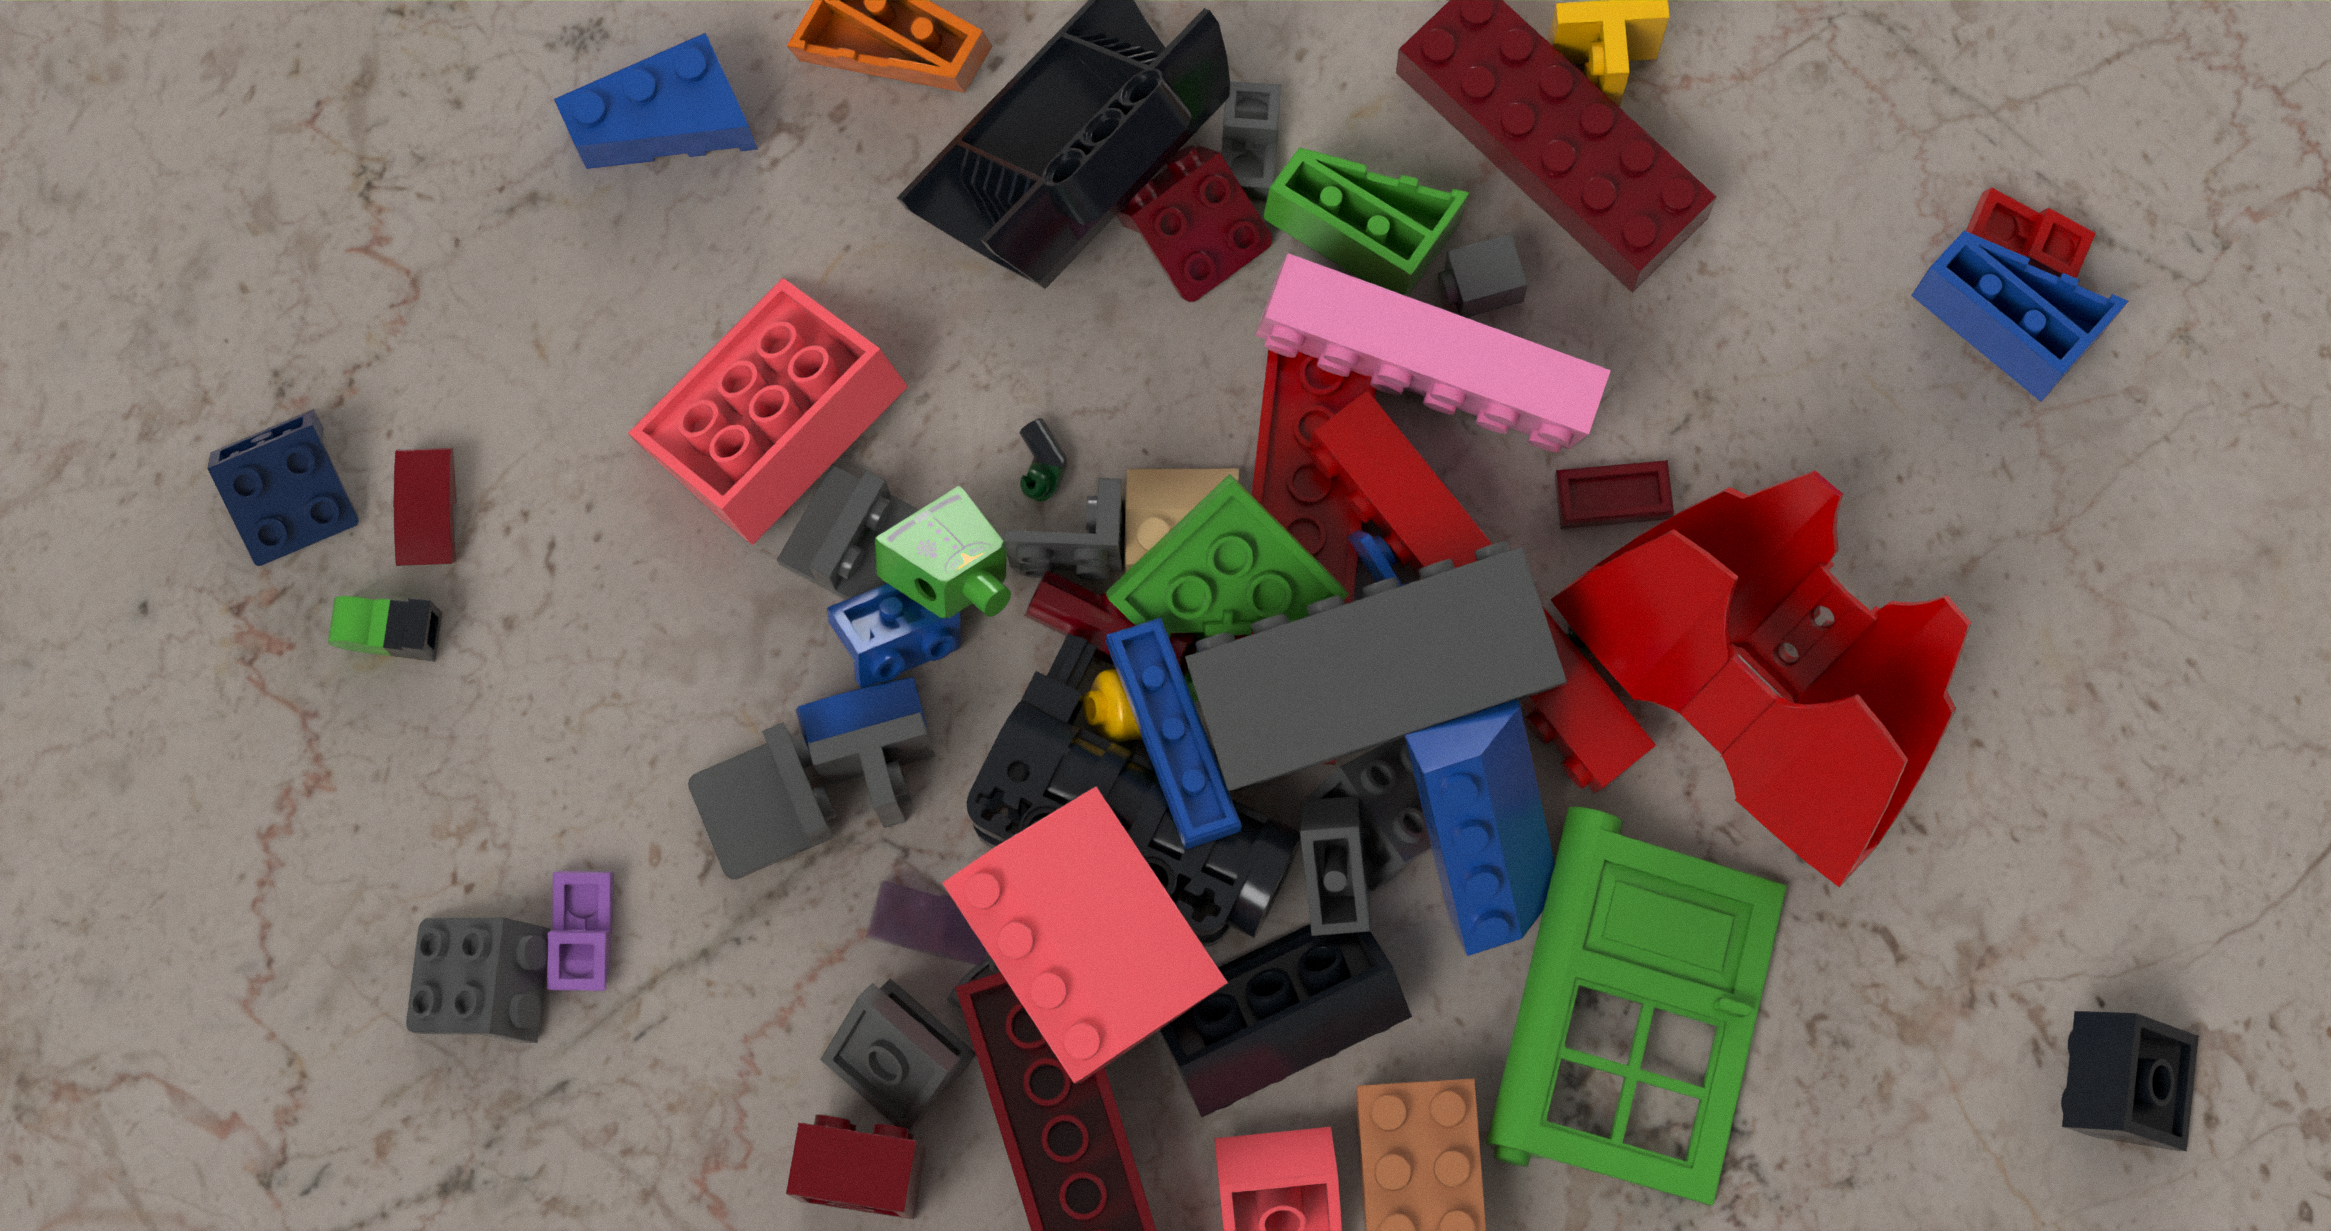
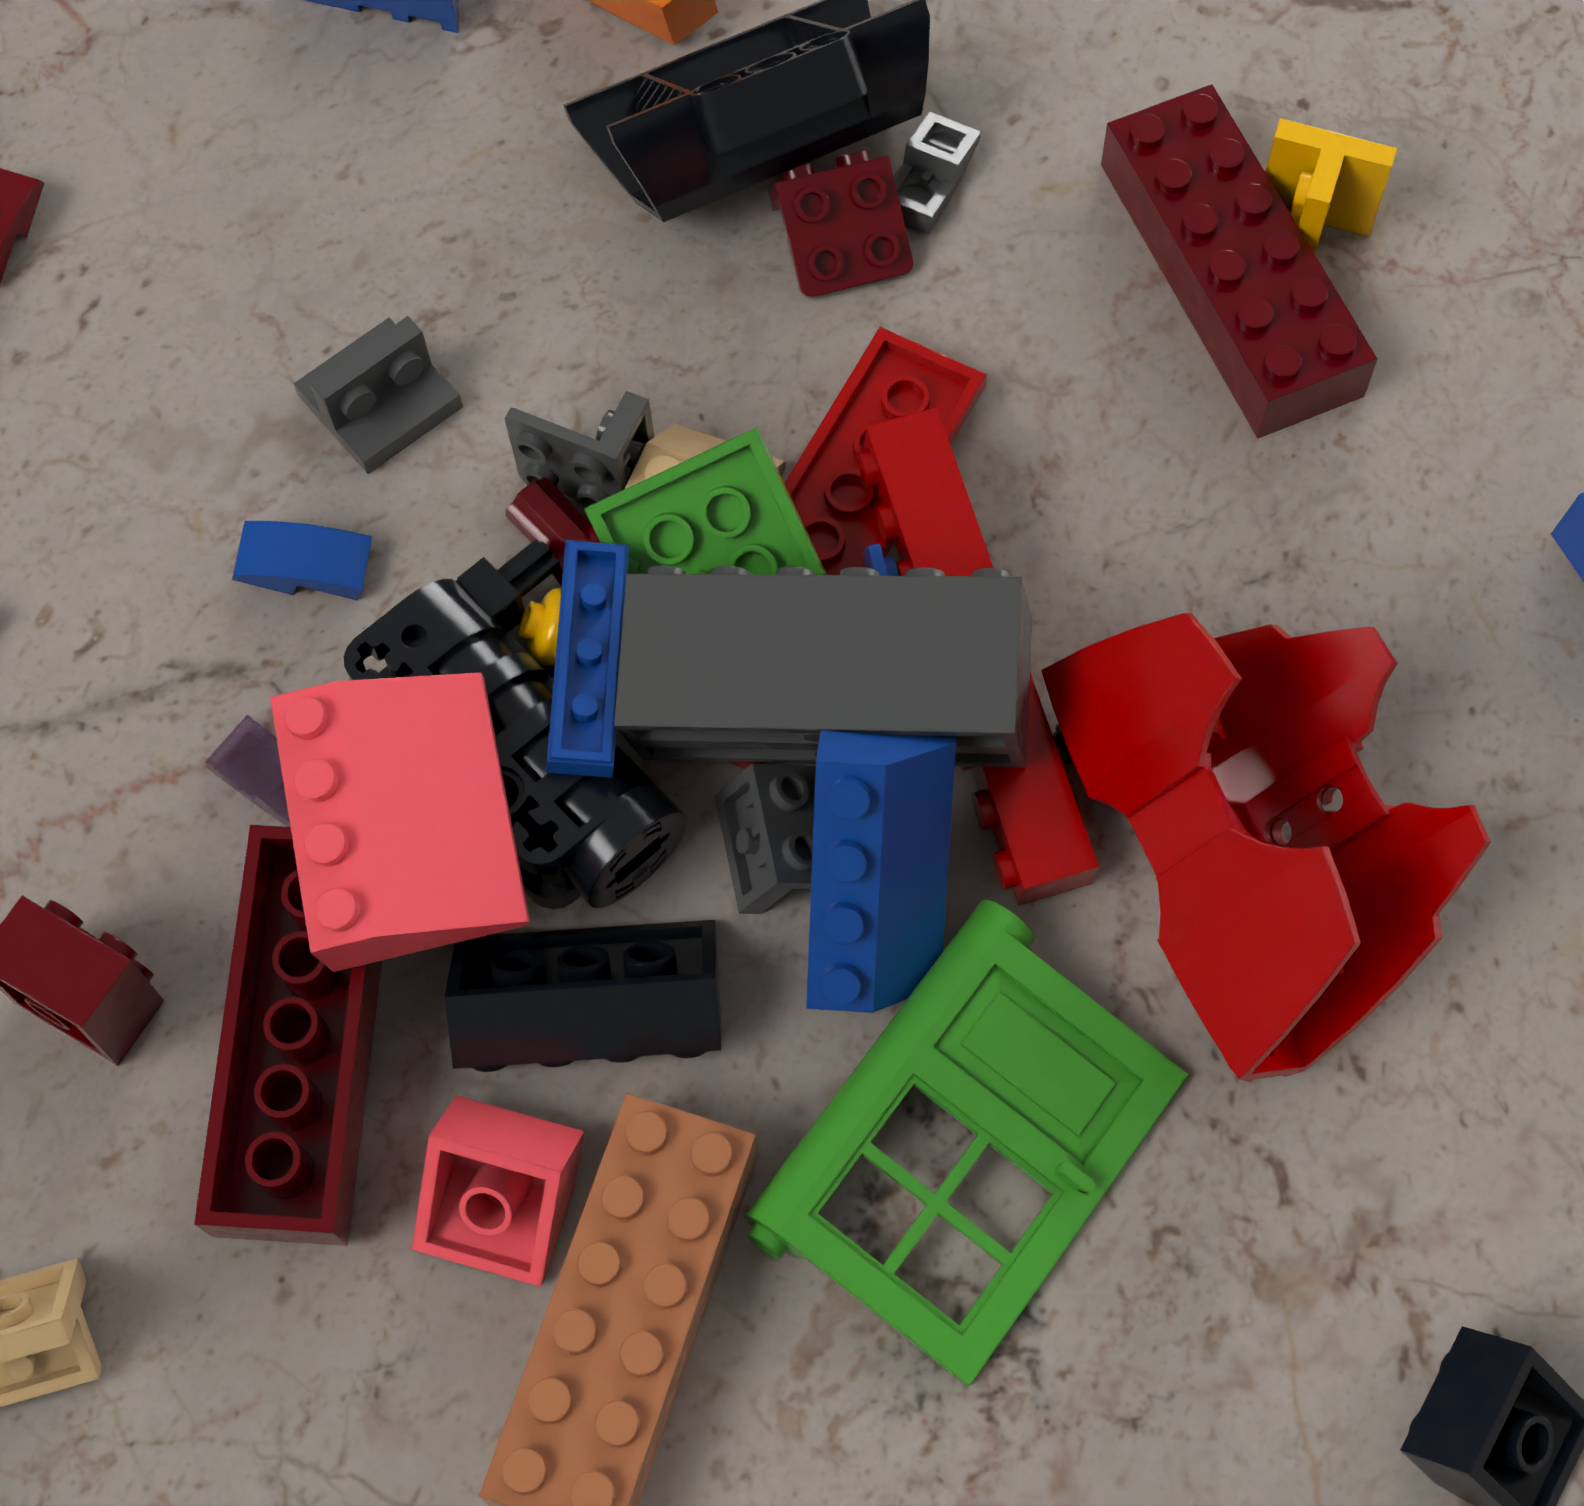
camera: 20 degrees right, 10 degrees down
(762, 804) = (167, 600): dark grey bracket -> none
(769, 409) = (354, 251): coral slope -> none
(877, 755) = (289, 590): dark grey bracket -> none
(891, 633) = (375, 482): blue bracket -> none
(896, 1054) = (172, 882): dark grey bracket -> none
(946, 558) = (448, 427): bright green torso -> none
(1048, 462) = (598, 391): arm -> none
(1335, 865) = (704, 861): dark grey brick -> none
(1364, 220) = (1010, 272): bright green wedge -> none
(1431, 355) = (1018, 400): bright pink brick -> none
(1483, 277) = (1108, 365): dark grey brick -> none
(1614, 494) = (1136, 602): dark red tile -> none

